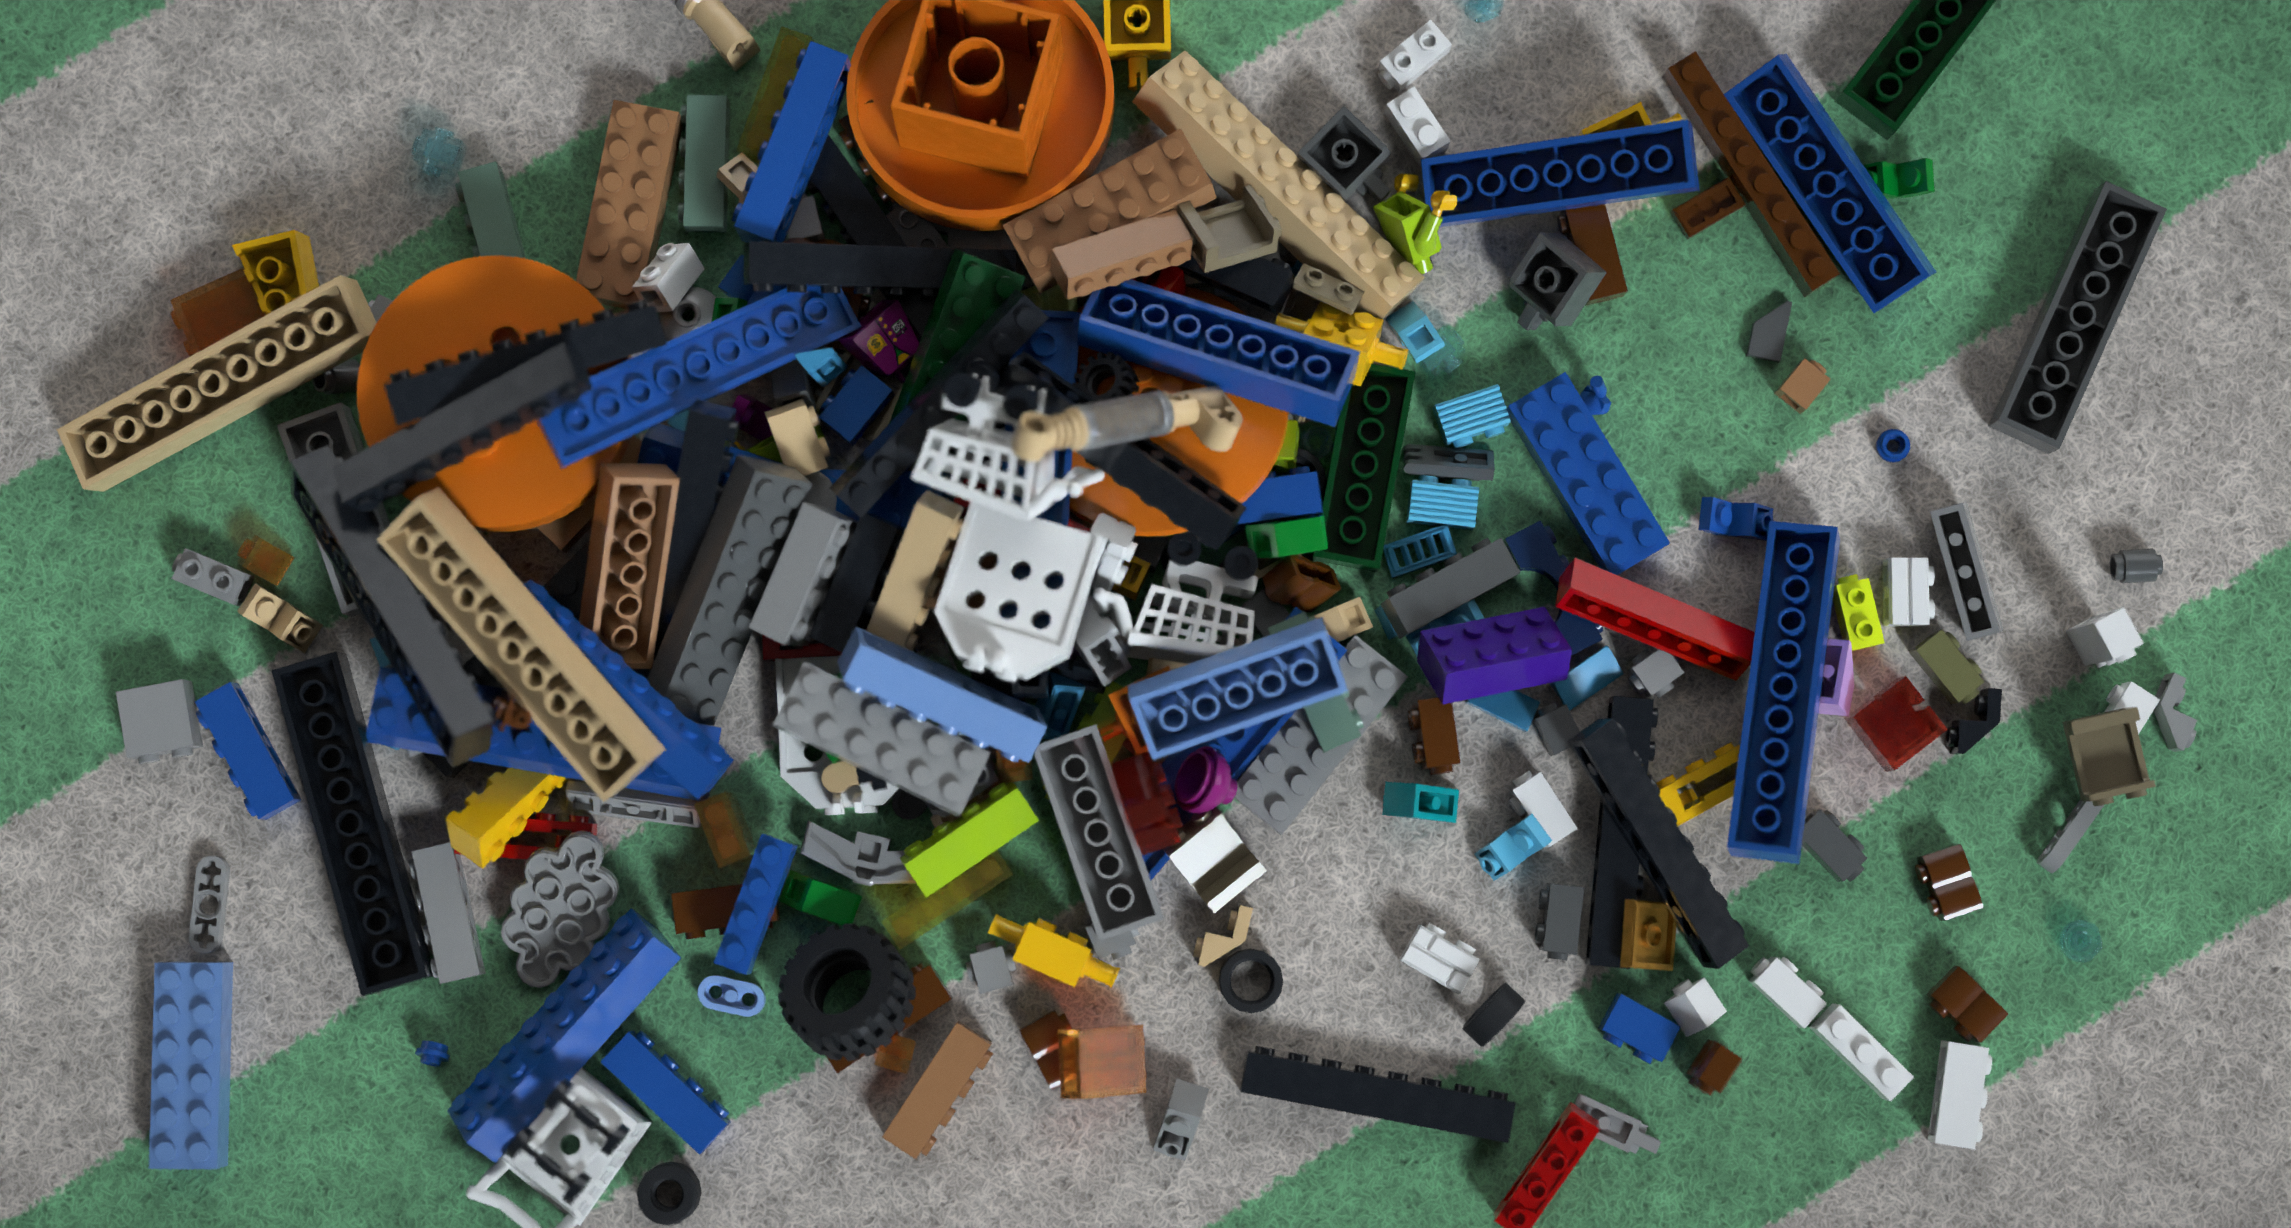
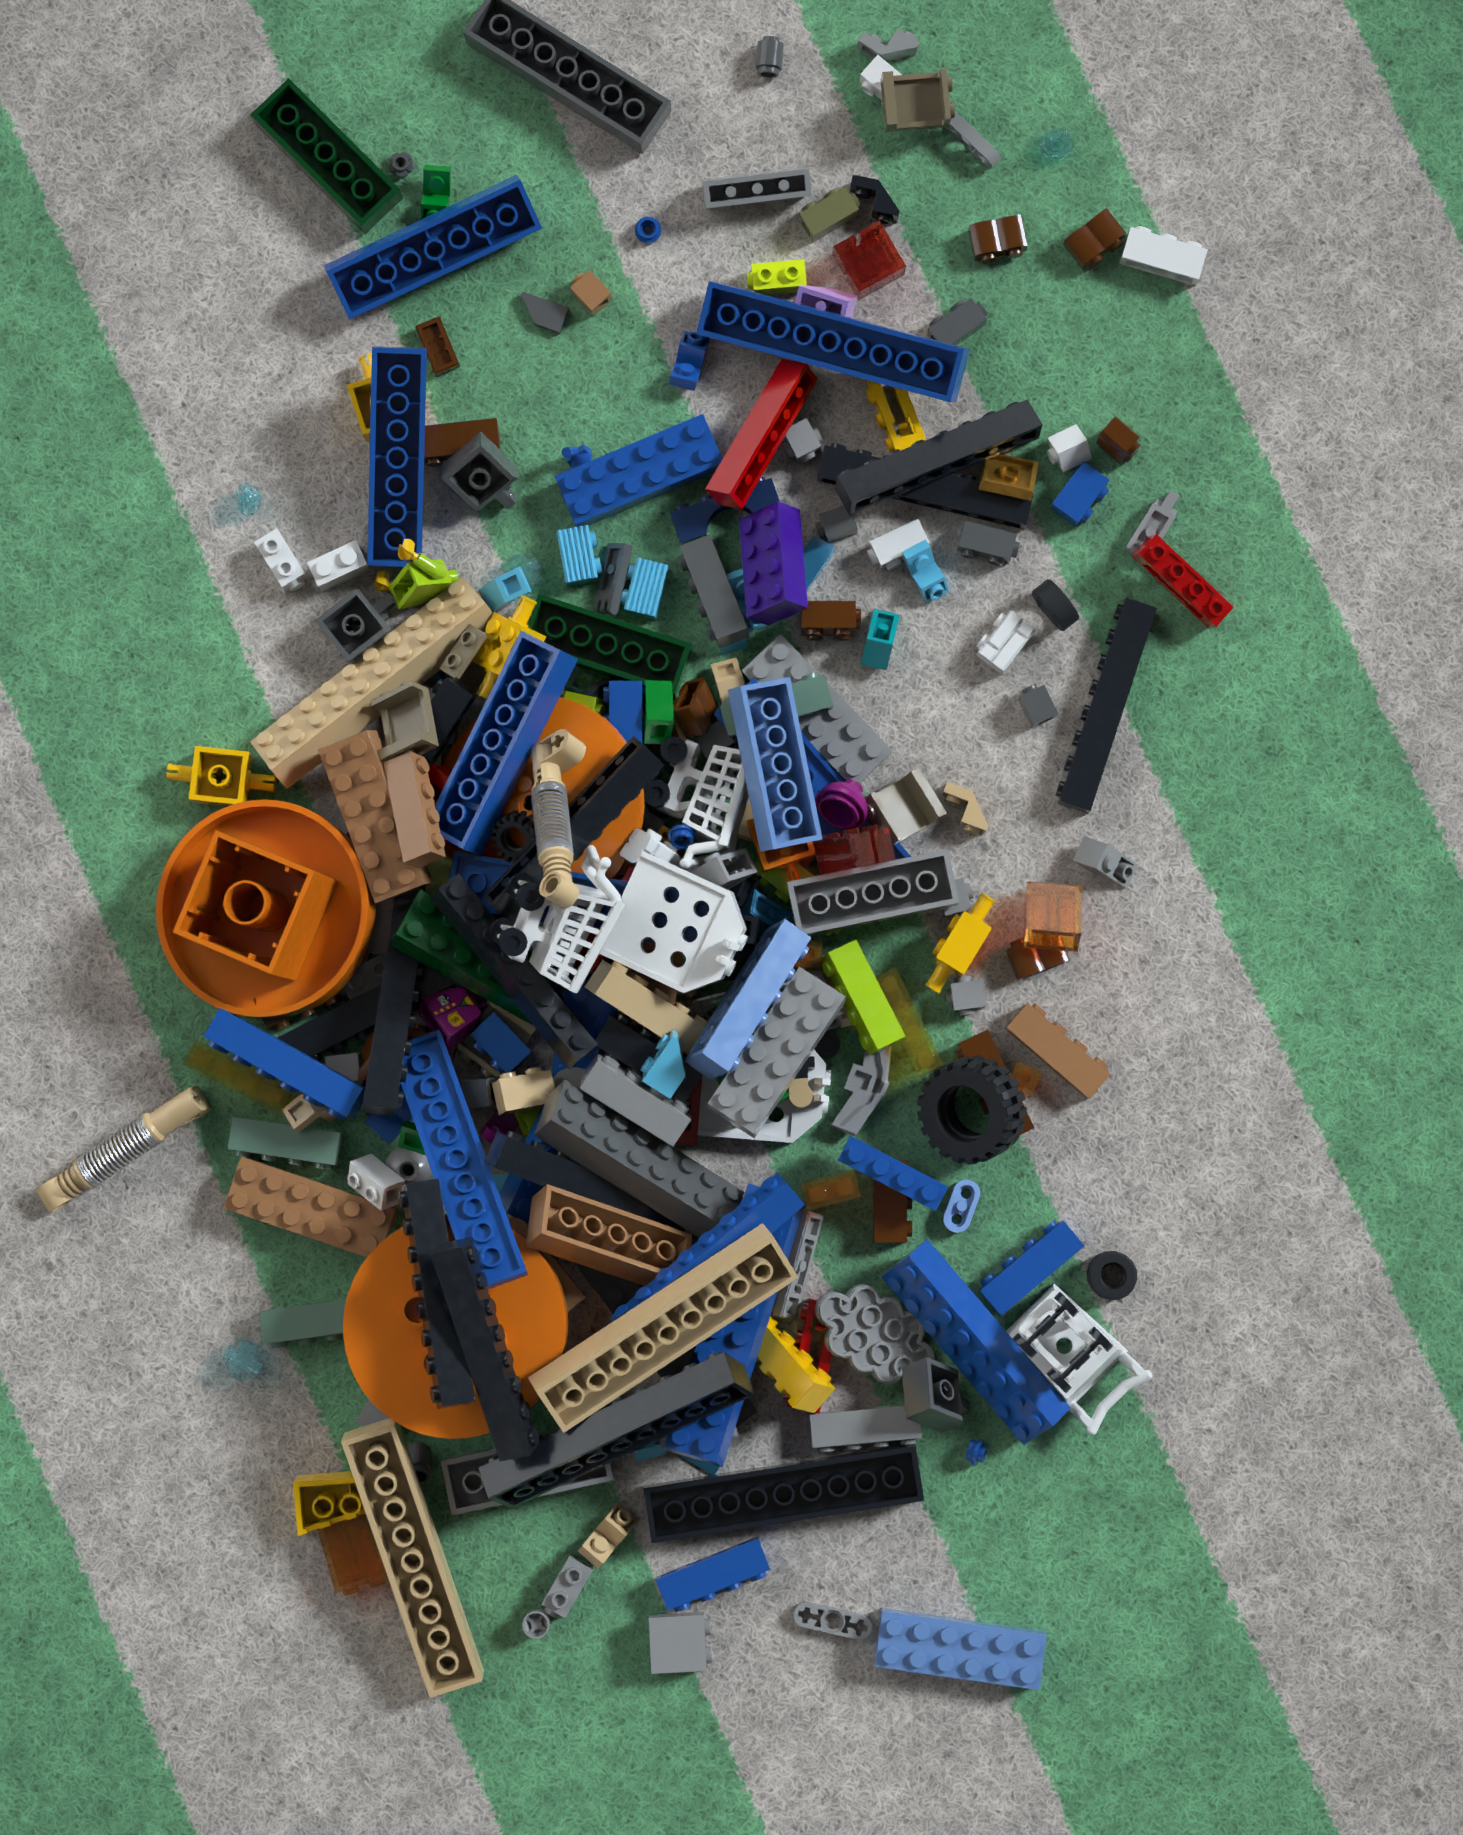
camera: 75 degrees left, 0 degrees up
(157, 544) = (536, 1627): none -> light grey wheel
(264, 559) = (558, 1542): clear orange bracket -> none
(491, 990) = (933, 1395): none -> dark grey hinge
(509, 712) = (717, 1342): reddish brown hinge -> none
(820, 898) = (894, 1124): green slope -> none
(822, 365) = (467, 1064): dark azure slope -> none
(843, 606) = (667, 1067): none -> medium azure slope
(1134, 587) = (681, 836): none -> blue plate
(1275, 985) = (1017, 777): black tyre -> none
(1365, 1008) = (1037, 705): none -> dark grey brick
(1446, 540) = (677, 589): dark azure slope -> none
(1588, 678) = (799, 494): dark azure slope -> none
(1750, 174) = (415, 308): reddish brown brick -> none
(1782, 987) = (1065, 376): white brick -> none
(1861, 1052) = (1121, 325): white brick -> none
(1907, 592) = (766, 236): white brick -> none
(1928, 140) = (403, 171): none -> dark grey plate
(2105, 638) = (824, 88): white brick -> none

